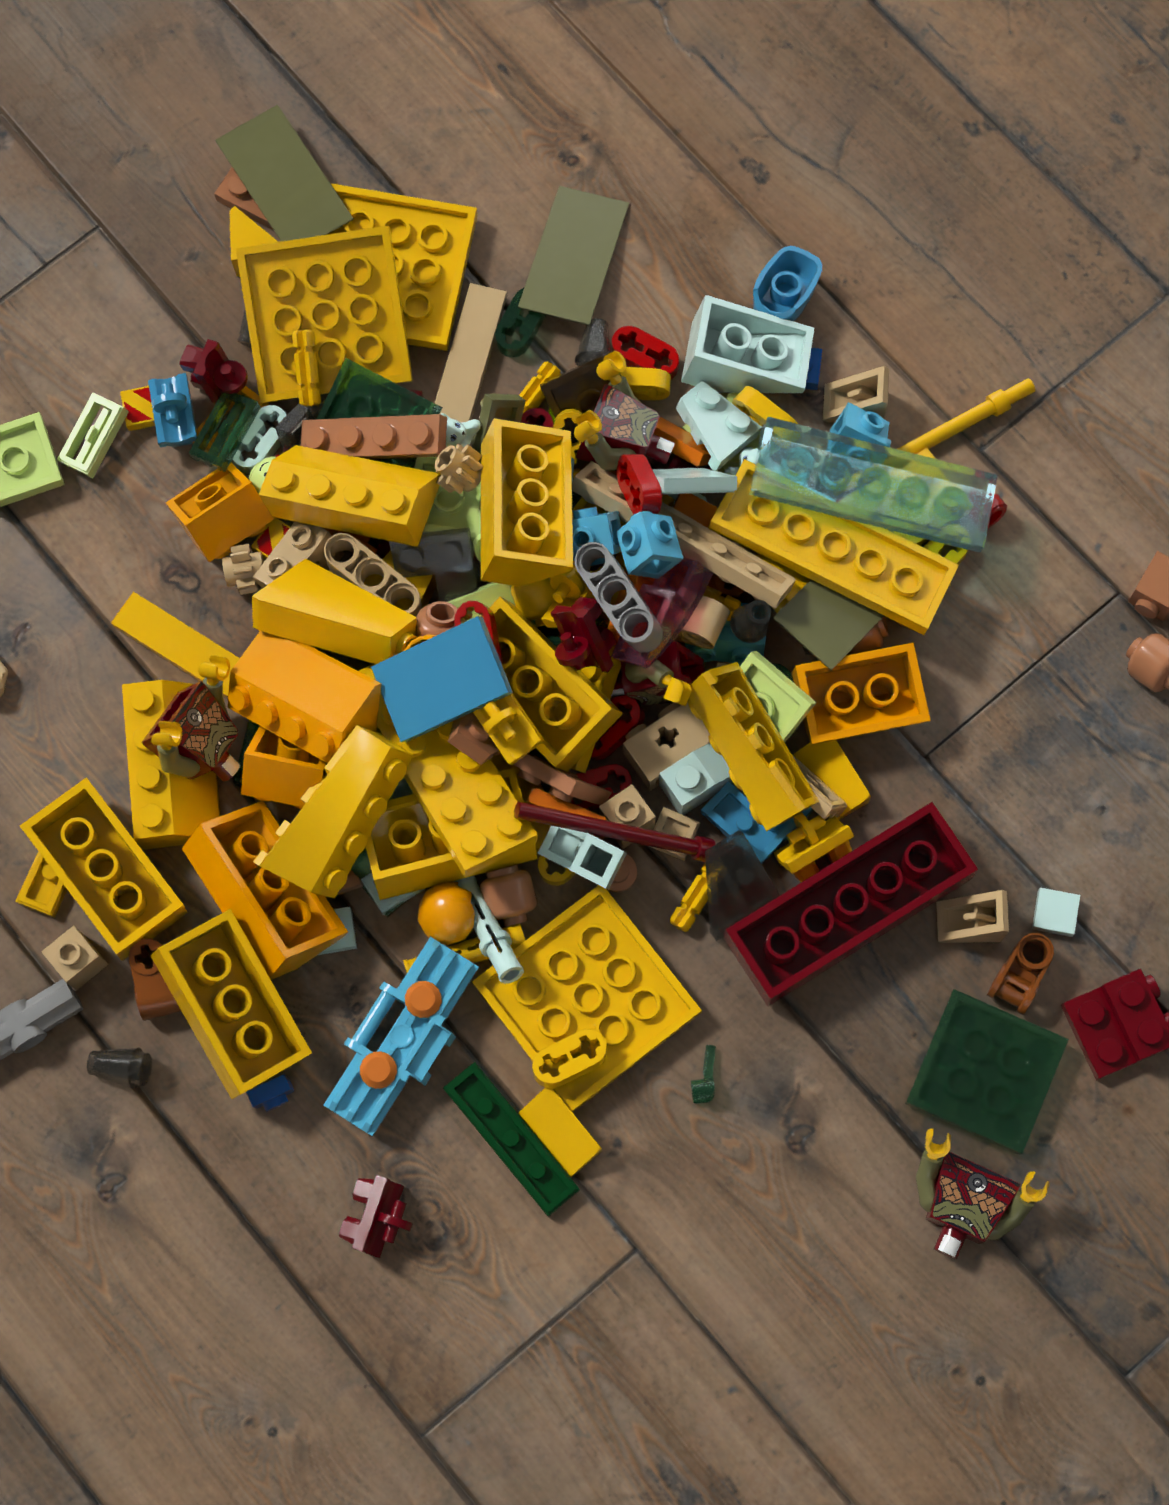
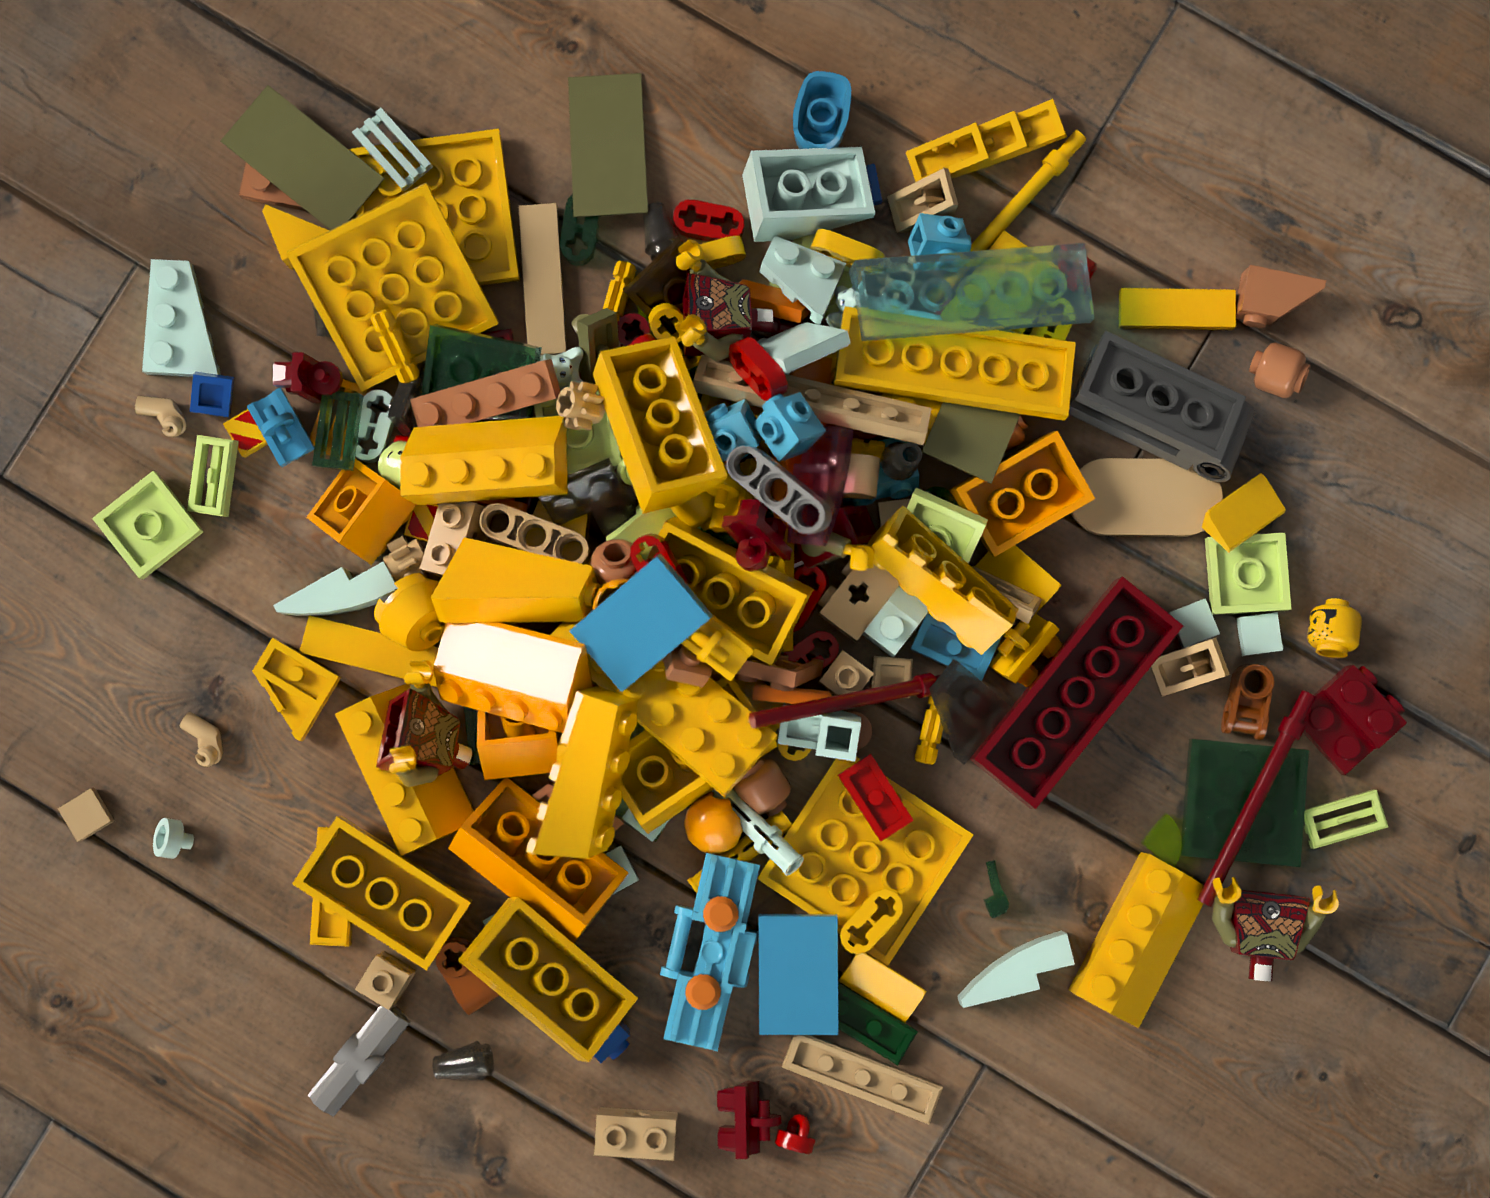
camera: 20 degrees left, 10 degrees up
(72, 366) = (166, 411): none -> tan arm
(95, 652) = (295, 685): none -> yellow wing
(111, 292) = (175, 323): none -> light aqua wing
(120, 361) = (211, 394): none -> blue plate
(171, 580) = (340, 593): none -> light aqua slope
(226, 616) = (410, 615): none -> yellow cone
(262, 1191) = (636, 1133): none -> tan brick
(359, 168) = (371, 125): none -> light aqua tile
(420, 1252) = (795, 1141): none -> red tile
(479, 1088) = (798, 974): none -> dark azure tile
(508, 1216) = (862, 1077): none -> tan tile
(615, 938) = (875, 797): none -> red plate
(699, 1160) = (1018, 970): none -> light aqua slope
(836, 1173) = (1139, 939): none -> yellow slope
(893, 1084) = (1164, 840): none -> clear neon green tile
(943, 364) = (988, 143): none -> yellow slope
(986, 744) = (1145, 498): none -> tan tile
(994, 876) = (1197, 623): none -> light aqua tile
(1026, 658) = (1162, 408): none -> dark grey hinge
(1048, 1122) = (1312, 827): none -> yellowish green tile
(1054, 1011) = (1290, 730): none -> dark red bar
(1062, 848) = (1250, 576): none -> yellowish green plate
(1074, 575) = (1177, 308): none -> yellow tile
(1075, 785) = (1243, 513): none -> yellow slope
(1132, 929) = (1334, 628): none -> yellow head

